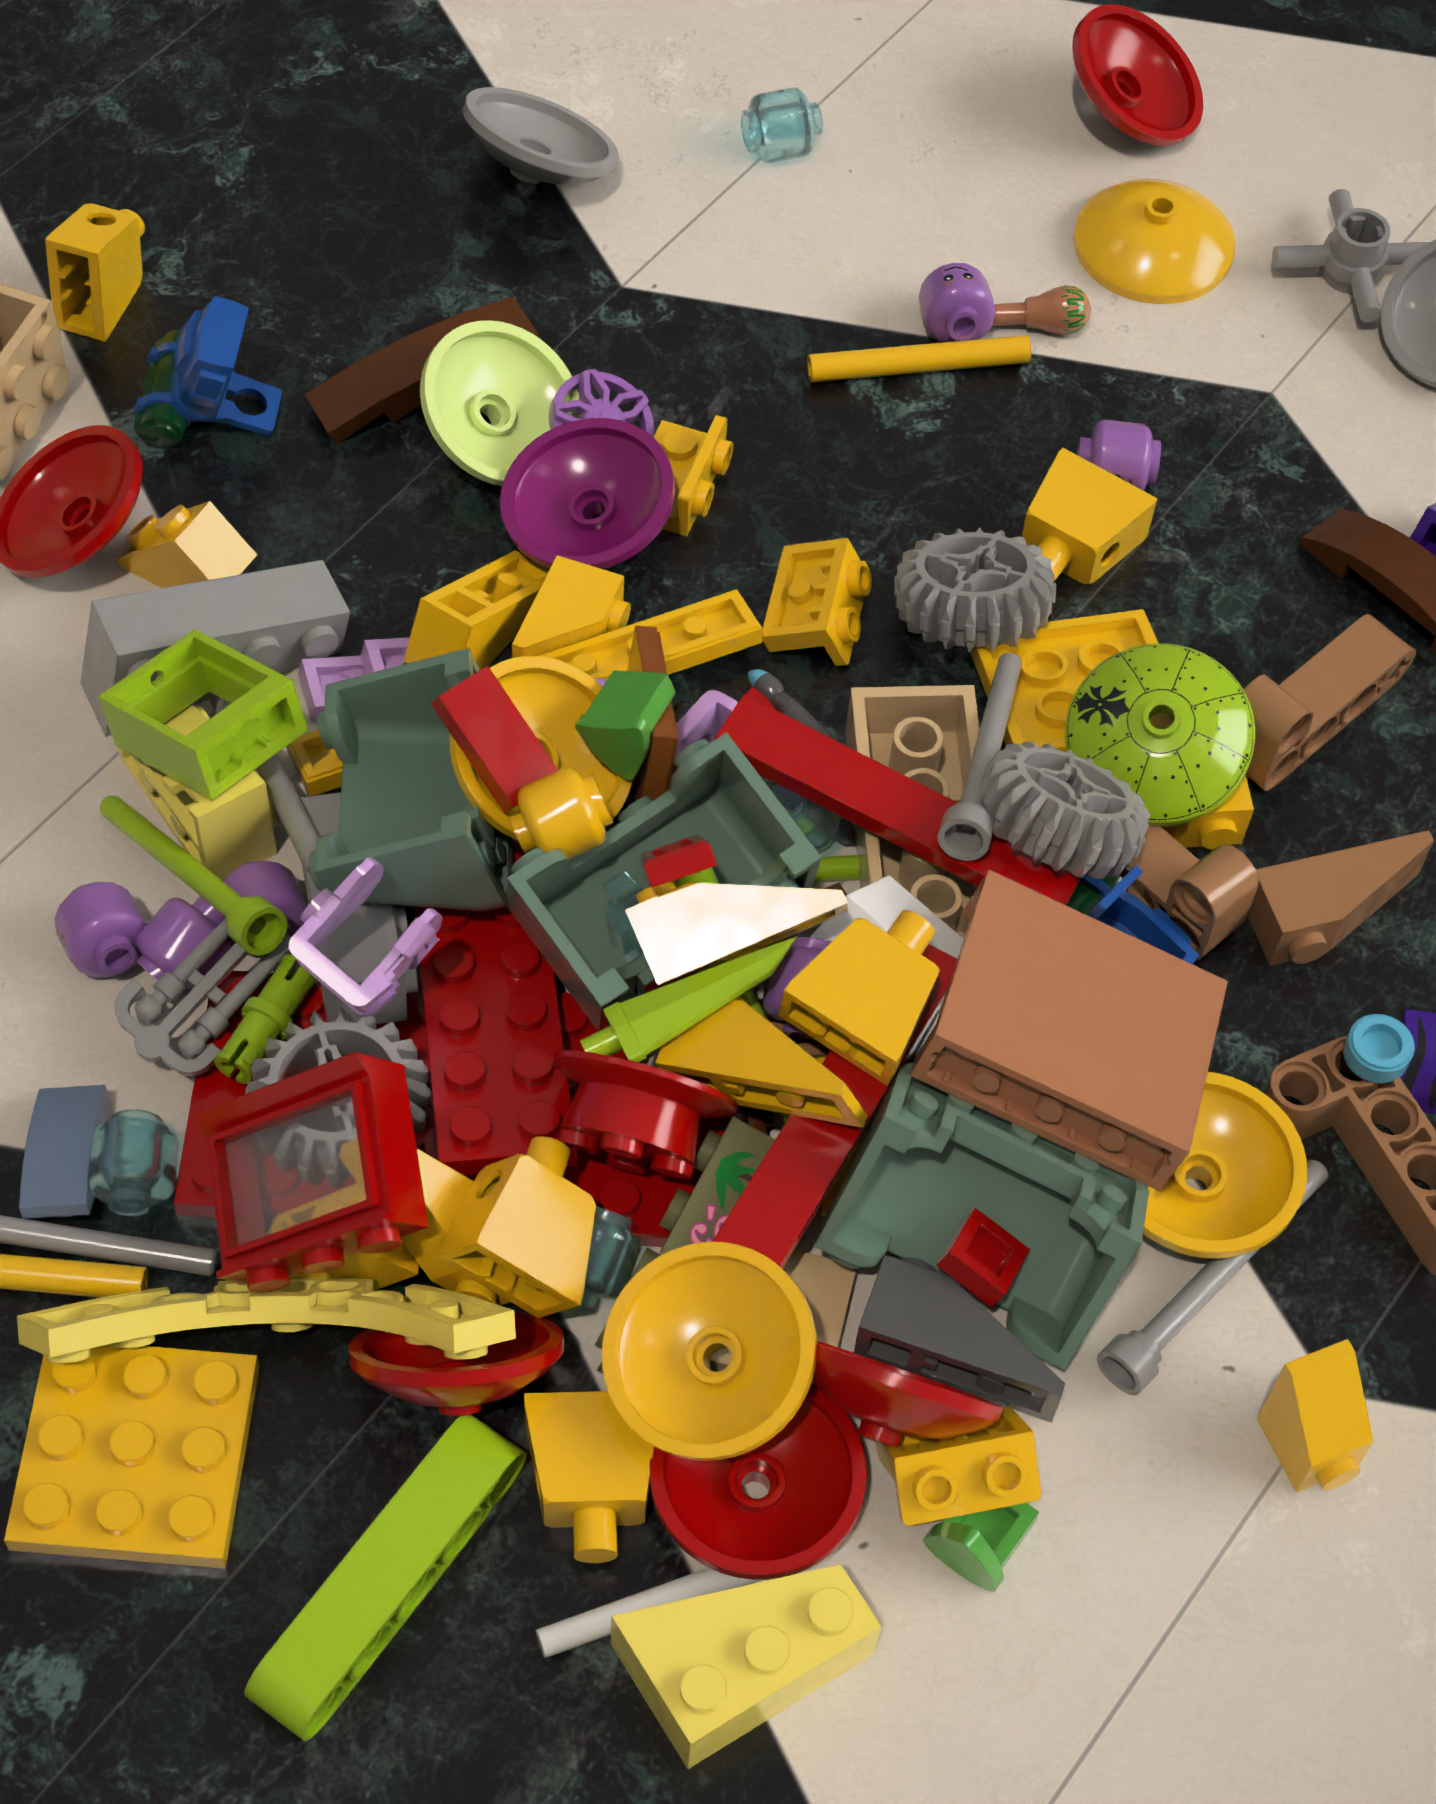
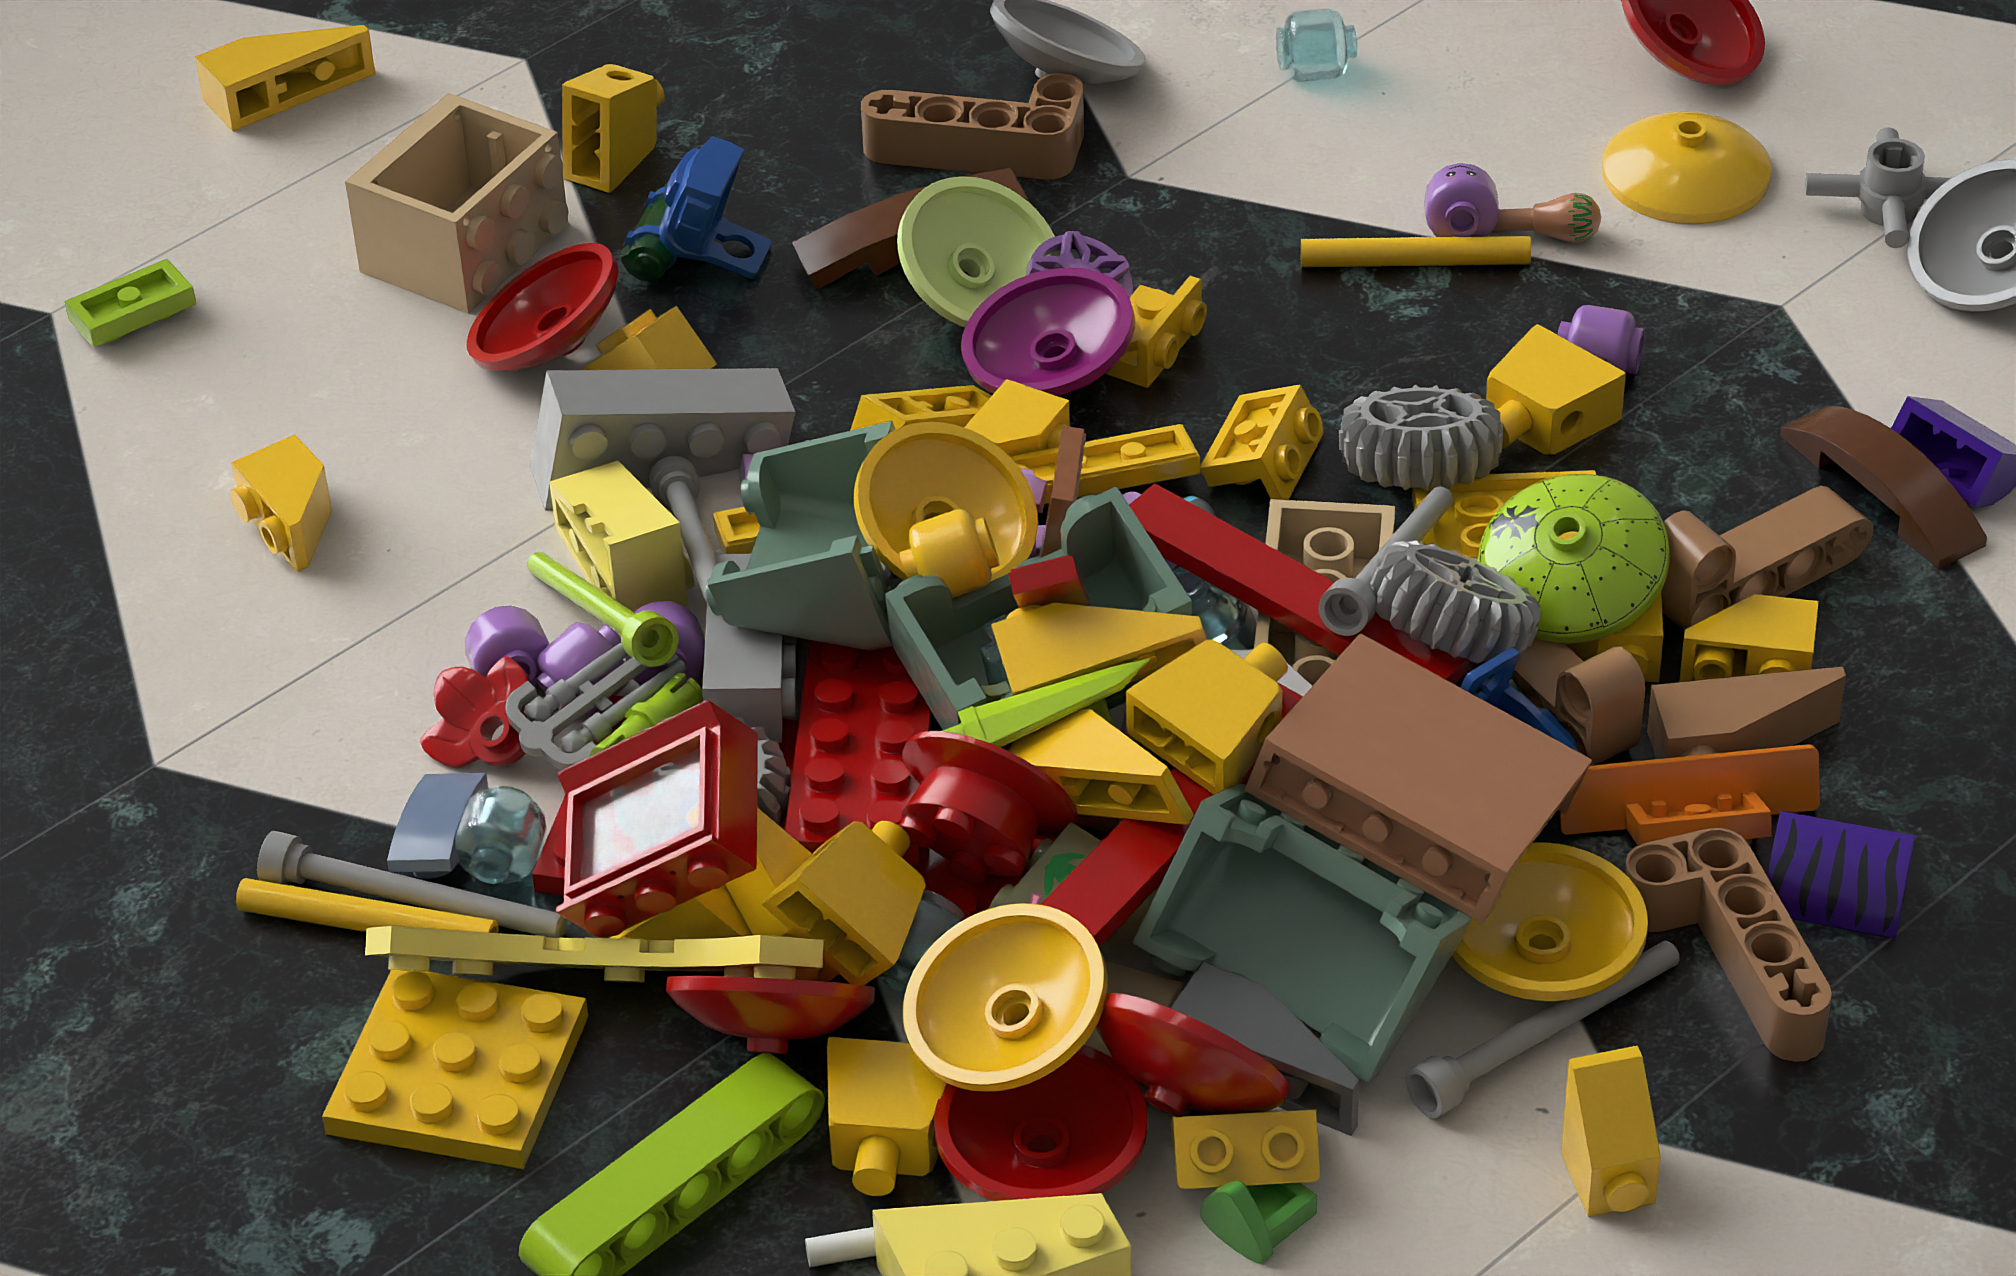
camera: 15 degrees right, 15 degrees down
(75, 1009) = (472, 713): none -> red plate
(229, 745) = (636, 465): lime window -> none
(324, 917) = (730, 604): lavender piece -> none
(468, 250) = (978, 133): none -> medium nougat beam
(493, 736) = (893, 478): red tile -> none
(622, 718) = (1022, 488): bright green tile -> none
(983, 1257) = (1299, 970): red plate -> none
(1320, 990) = (1696, 793): none -> orange bracket
(1335, 804) = (1751, 639): none -> yellow slope
(1378, 1048) = (1741, 837): medium azure tile -> none

